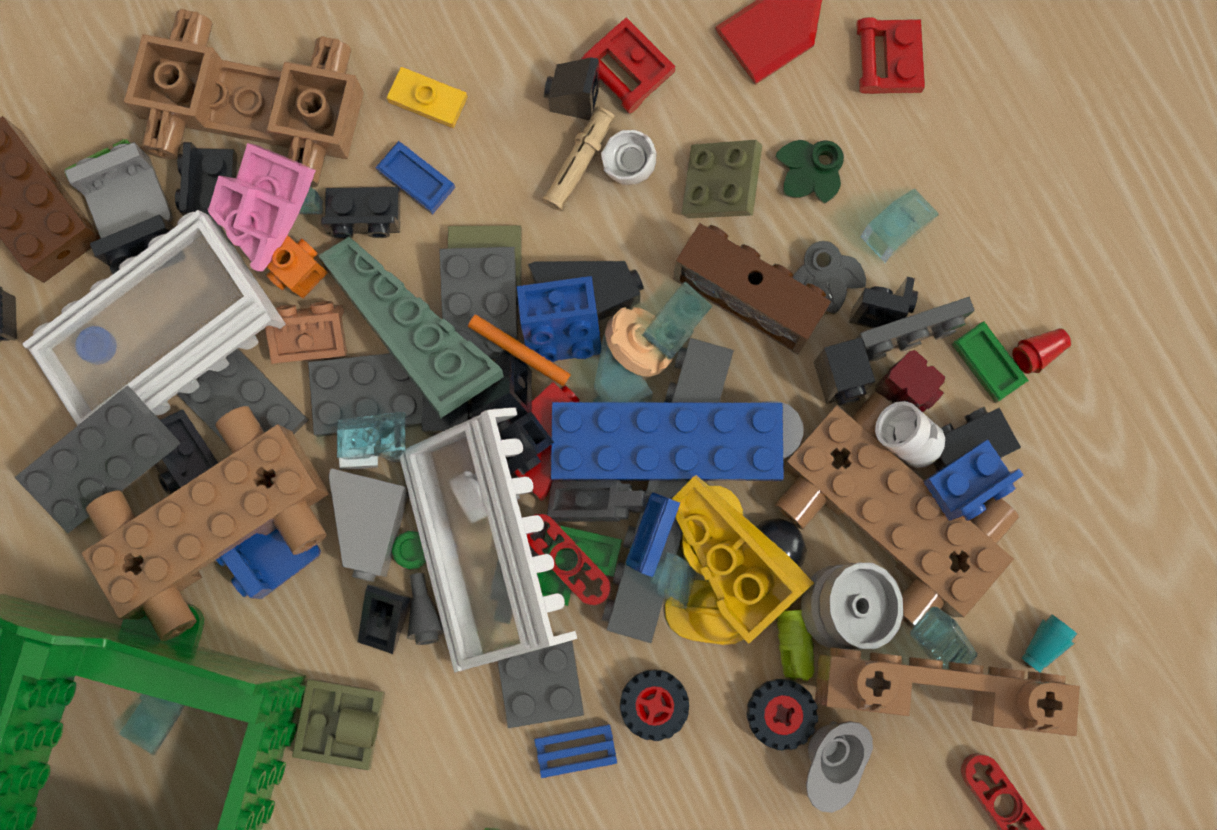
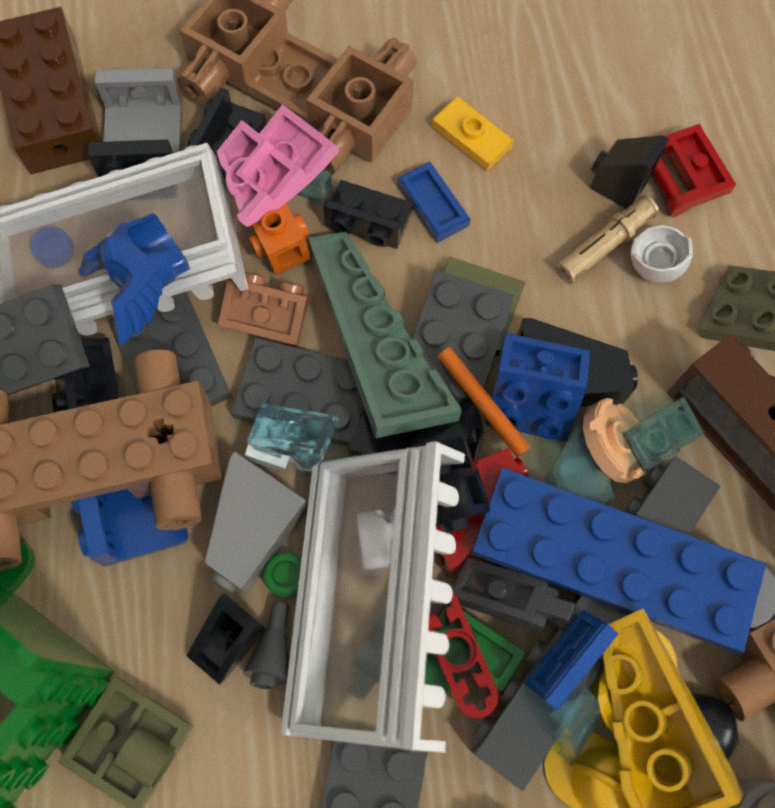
camera: 15 degrees right, 10 degrees down
(189, 342) = (142, 262): none -> blue helmet

